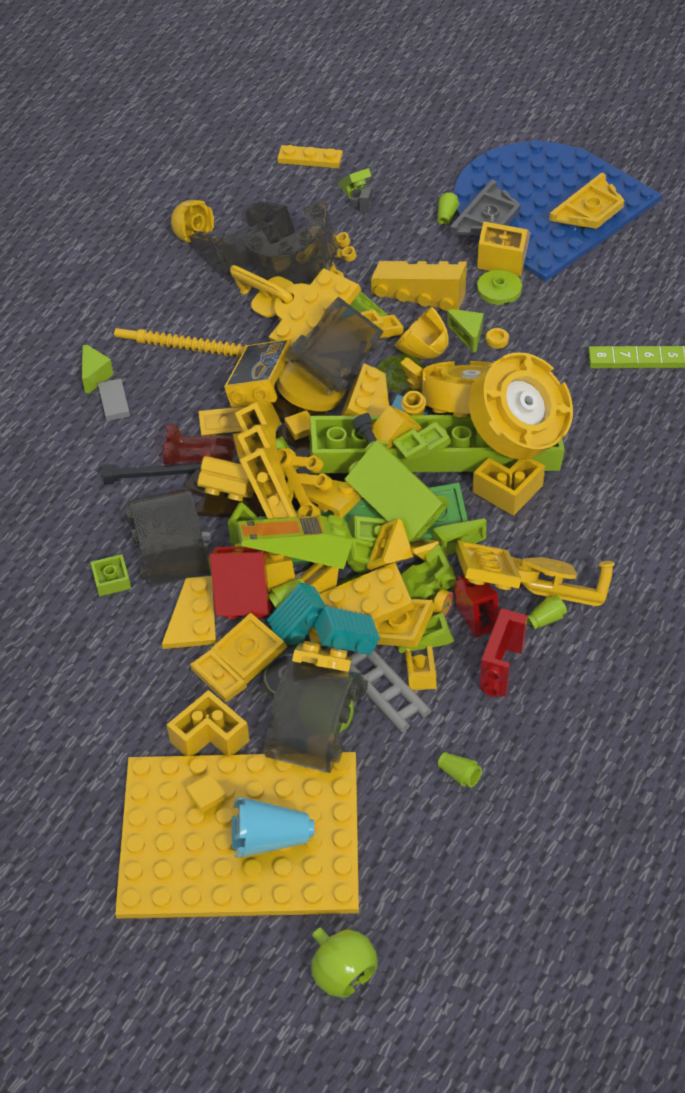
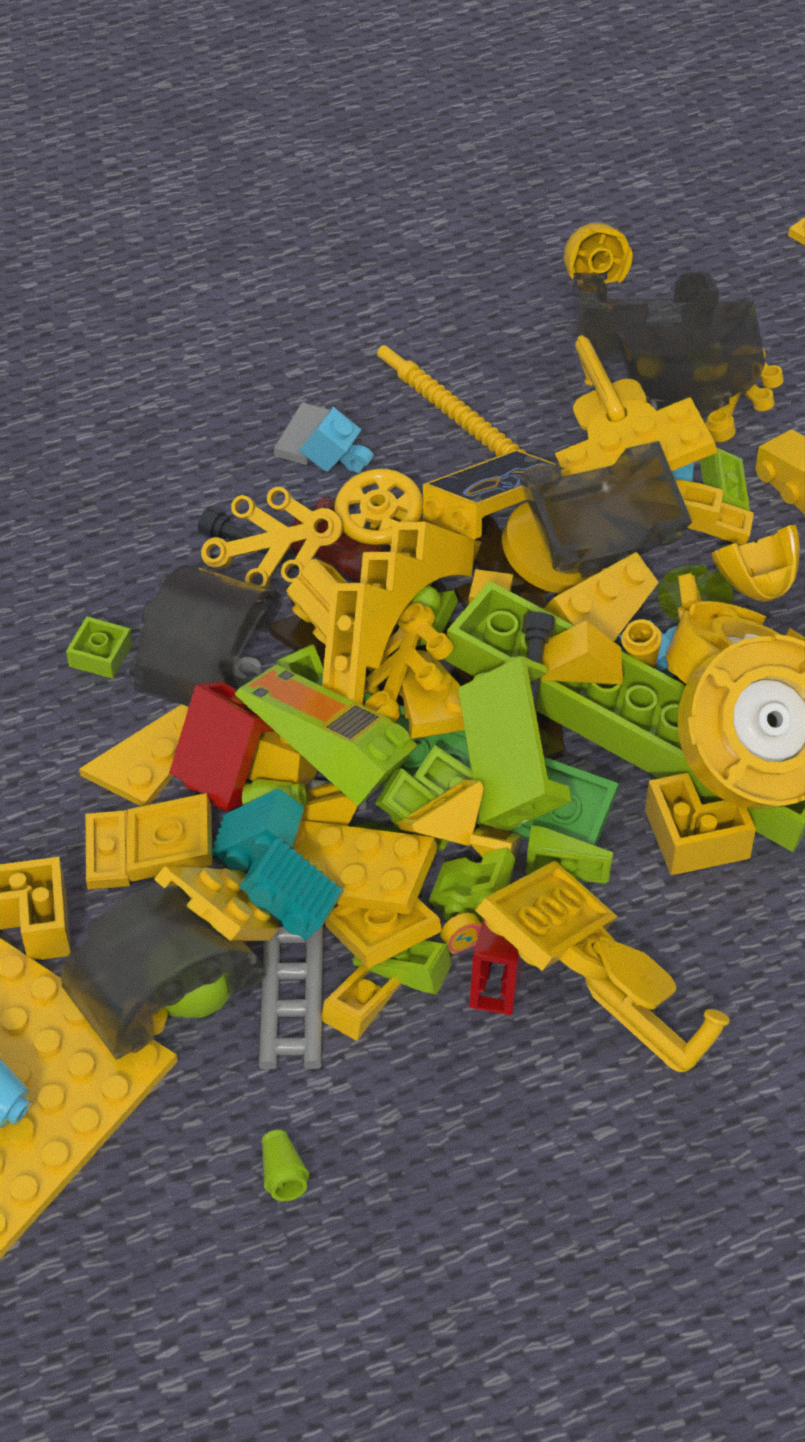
camera: 35 degrees right, 0 degrees up
(95, 368) = (309, 382): lime slope -> none
(140, 393) = (333, 442): none -> medium azure brick
(161, 459) = (277, 538): none -> yellow plant
(197, 431) = (381, 515): none -> yellow plate
(427, 441) = (592, 697): lime slope -> none
(509, 635) = (463, 1037): red panel -> none
(547, 612) = (588, 1034): lime cone -> none

